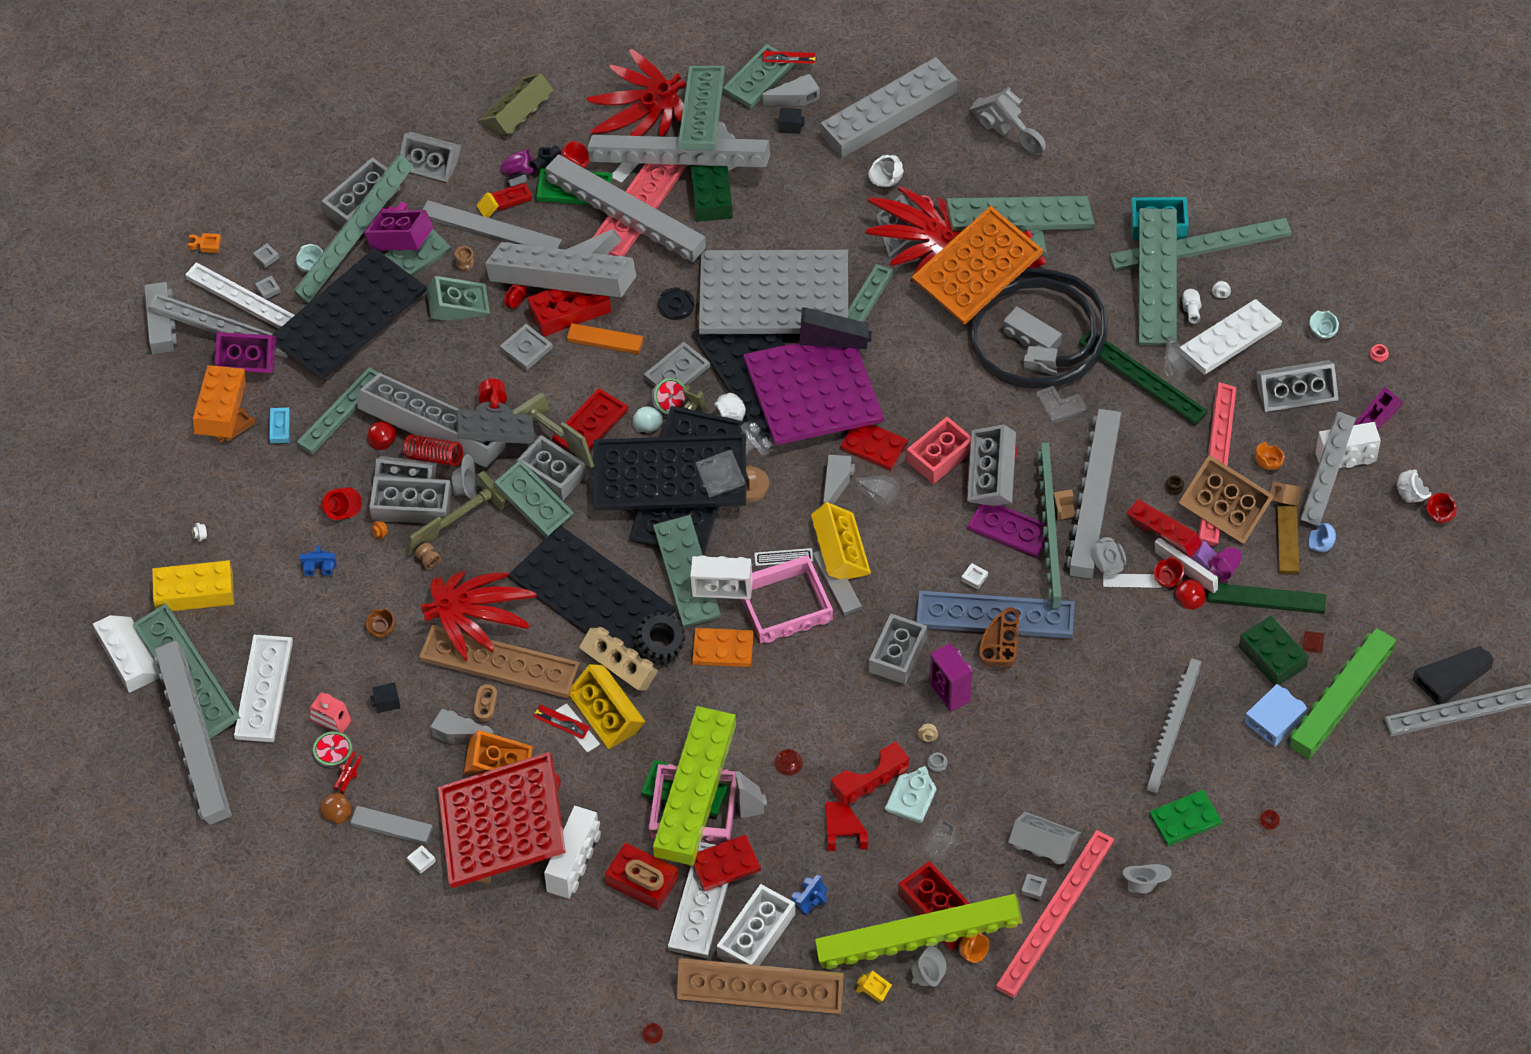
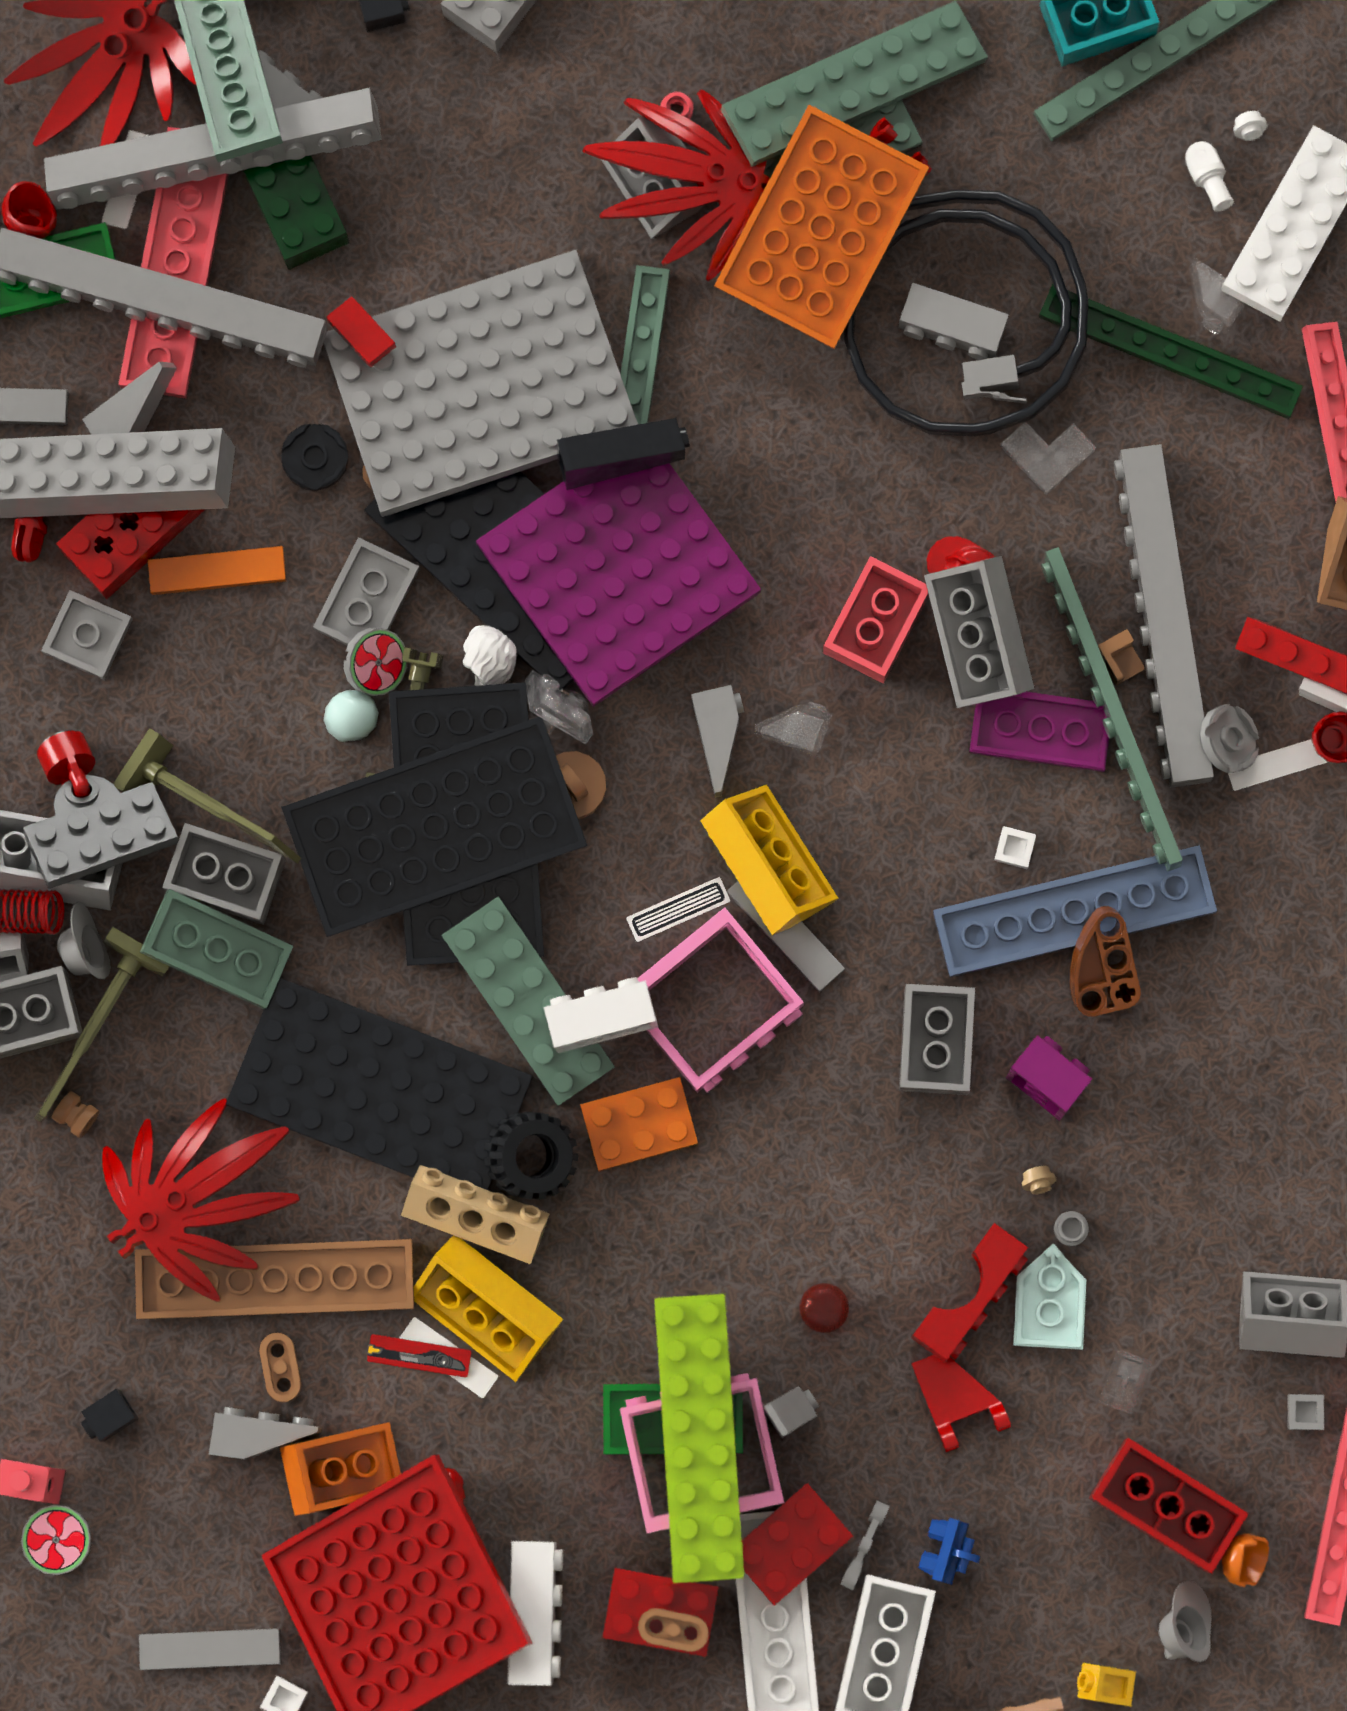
camera: 15 degrees left, 25 degrees up
(335, 808) = (105, 1649): dark orange hair -> none
(347, 773) = (99, 1576): red arm -> none
(380, 623) = (45, 1275): dark orange hair -> none
(594, 418) = (257, 752): red plate -> none
(720, 473) = (526, 810): clear plate -> none
(722, 251) = (361, 331): none -> red tile
(777, 868) = (854, 1568): none -> light grey piece
(875, 445) = (760, 638): red plate -> none
(886, 171) = (590, 66): white hair -> none
(919, 931) = (1157, 1580): lime brick -> none
(1157, 276) = (1136, 140): sand green plate -> none
(1174, 480) = (1297, 543): dark brown plate -> none

